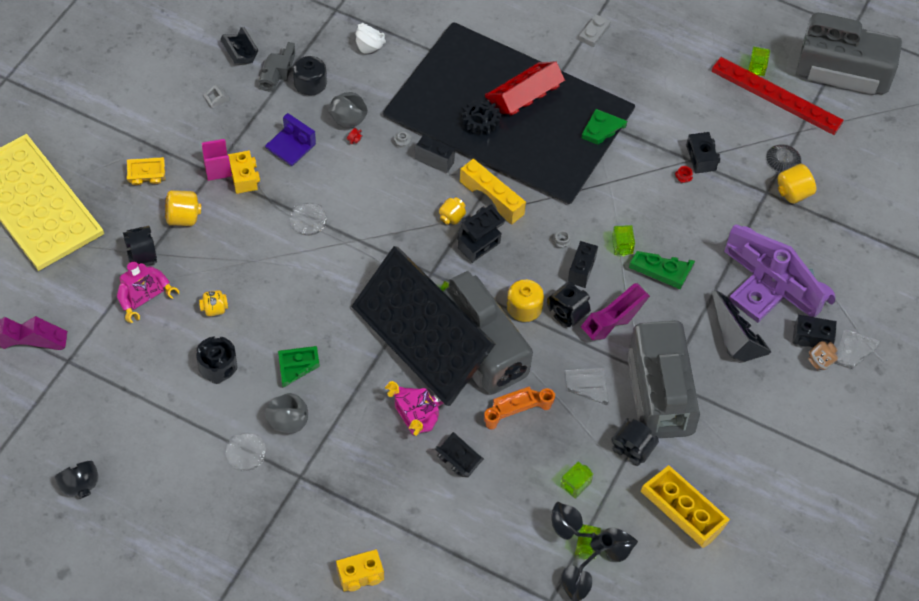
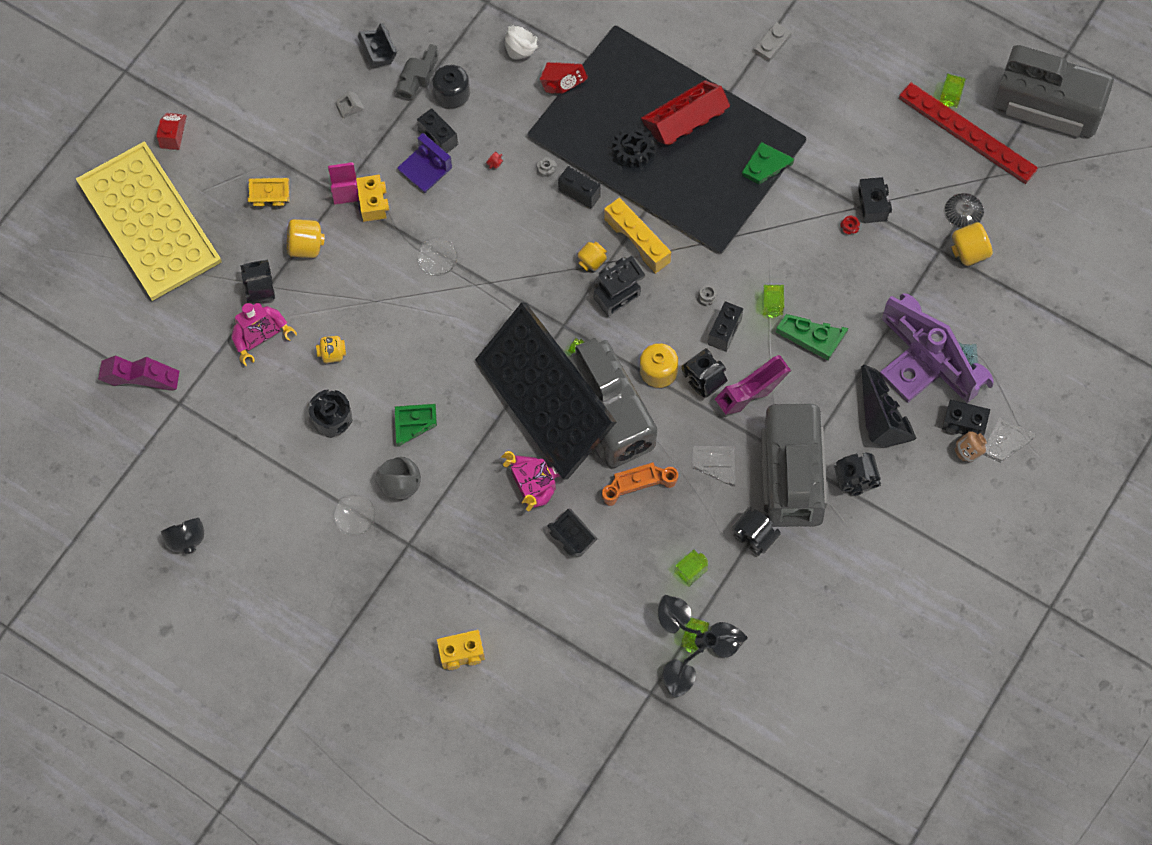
camera: 10 degrees right, 10 degrees up
(51, 125) = (171, 131): none -> red slope
(300, 110) = (437, 130): none -> black brick
(348, 109) = (489, 130): dark grey piece -> none
(410, 63) = (562, 76): none -> red slope
(685, 506) = (800, 604): yellow brick -> none
(723, 384) = (857, 473): none -> black brick

